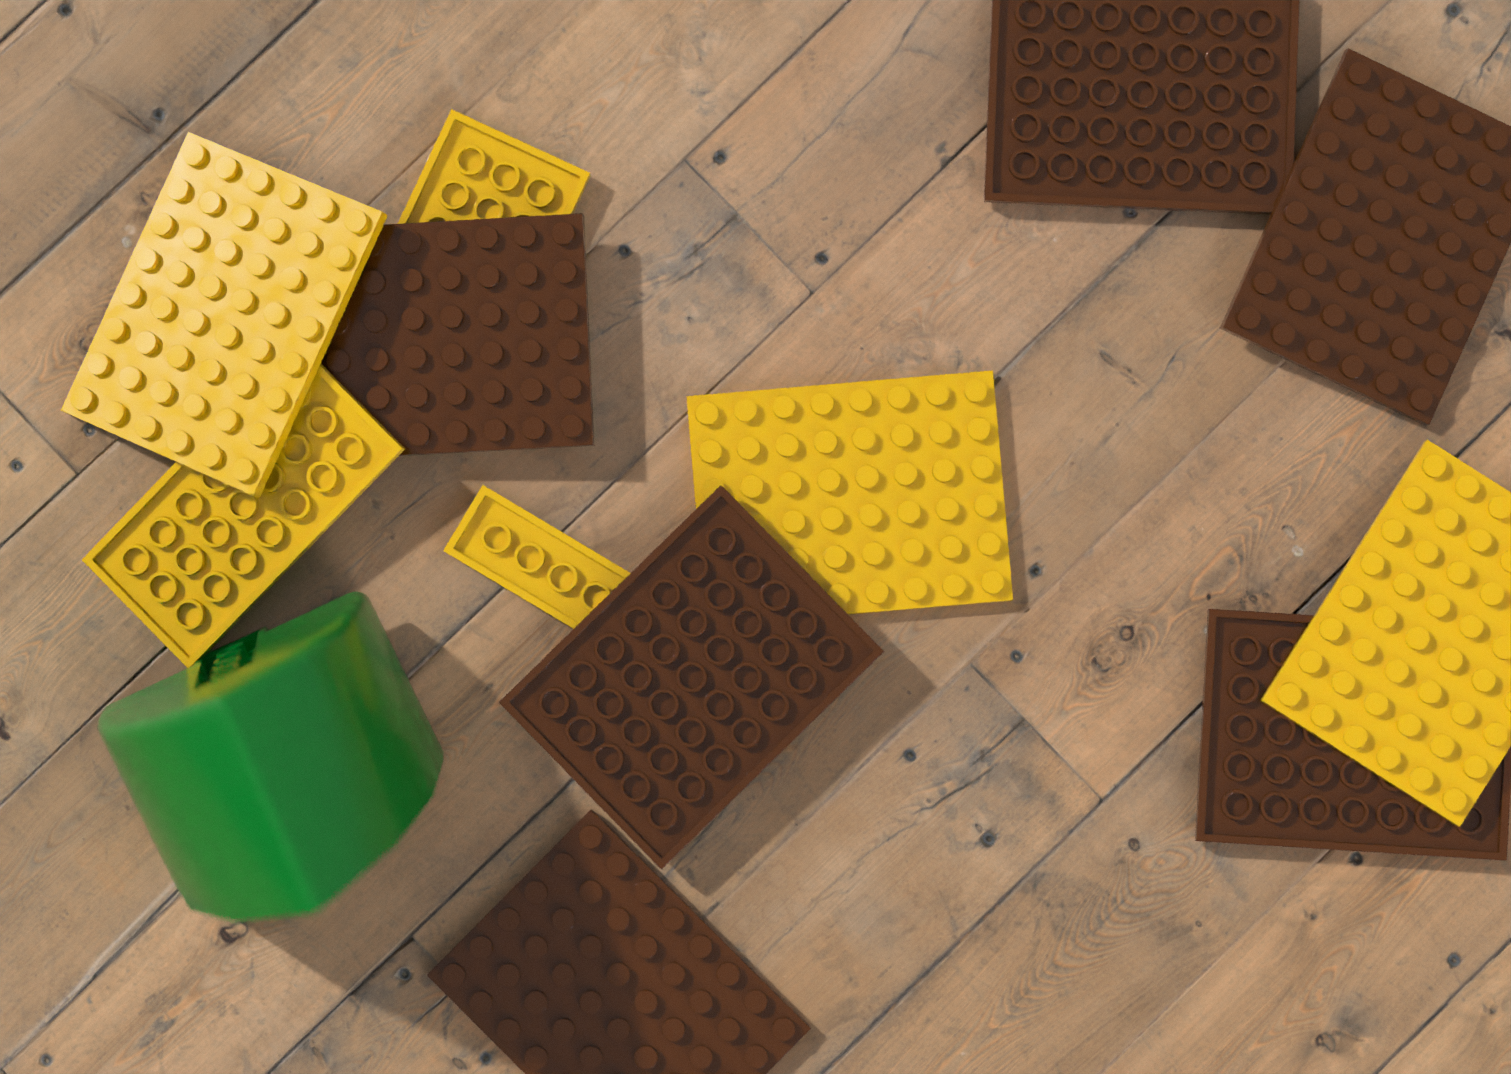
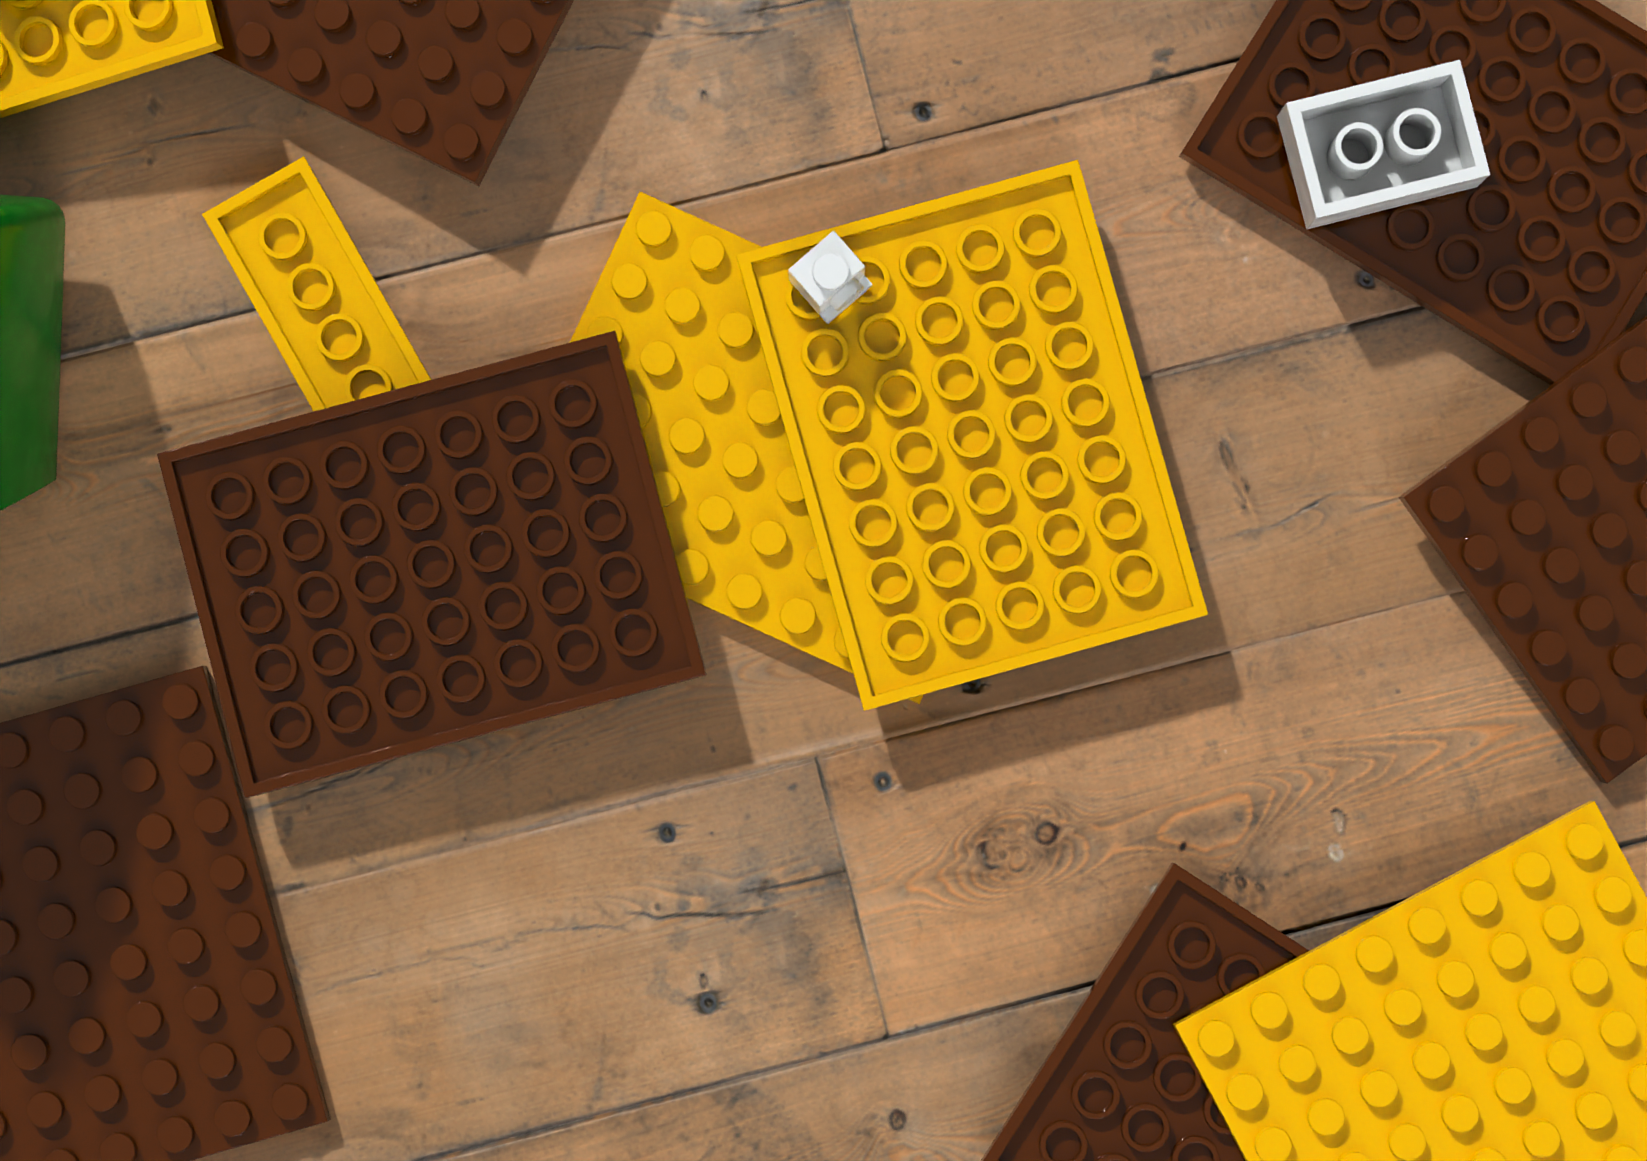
camera: 25 degrees right, 0 degrees up
(828, 386) = (829, 277): none -> white brick
(957, 430) = (975, 439): none -> yellow plate
(1098, 133) = (1383, 144): none -> white brick

